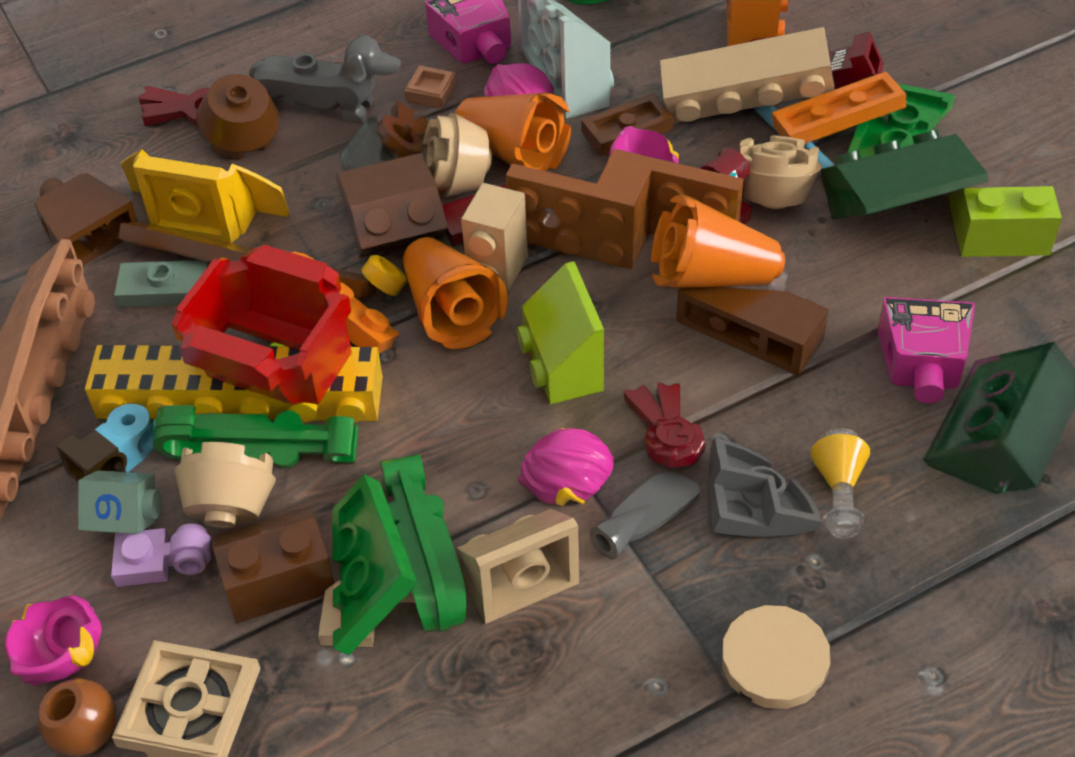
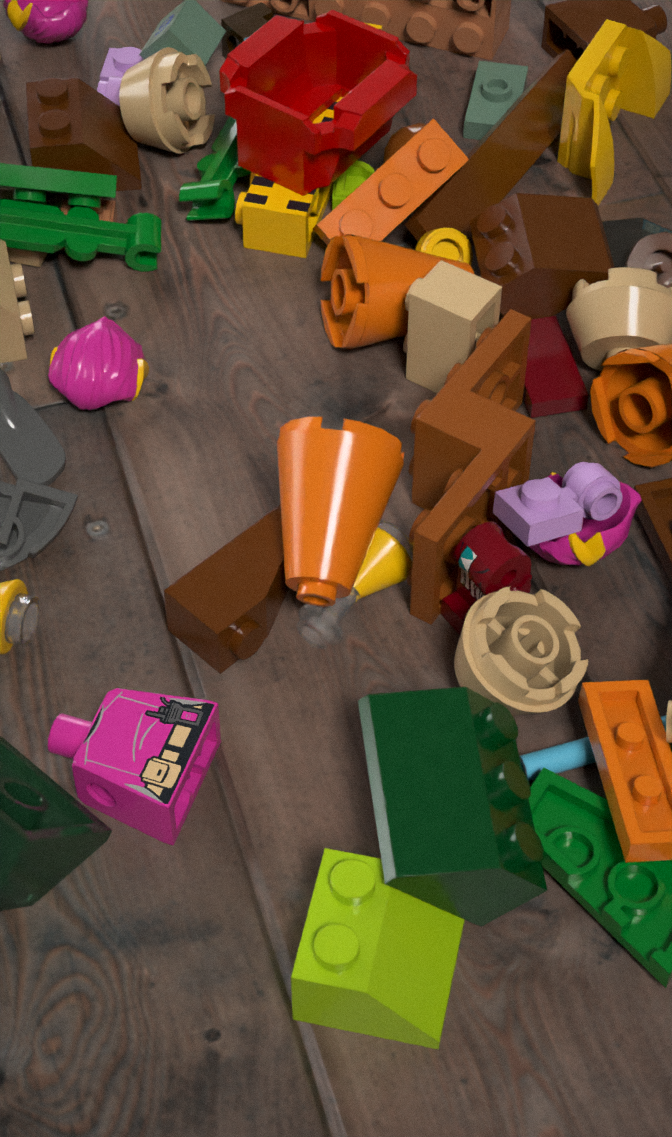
camera: 100 degrees right, 0 degrees up
(563, 337) = (270, 383): lime slope -> none
(645, 141) = (545, 511): none -> lavender plate
(669, 437) = (100, 467): dark red piece -> none

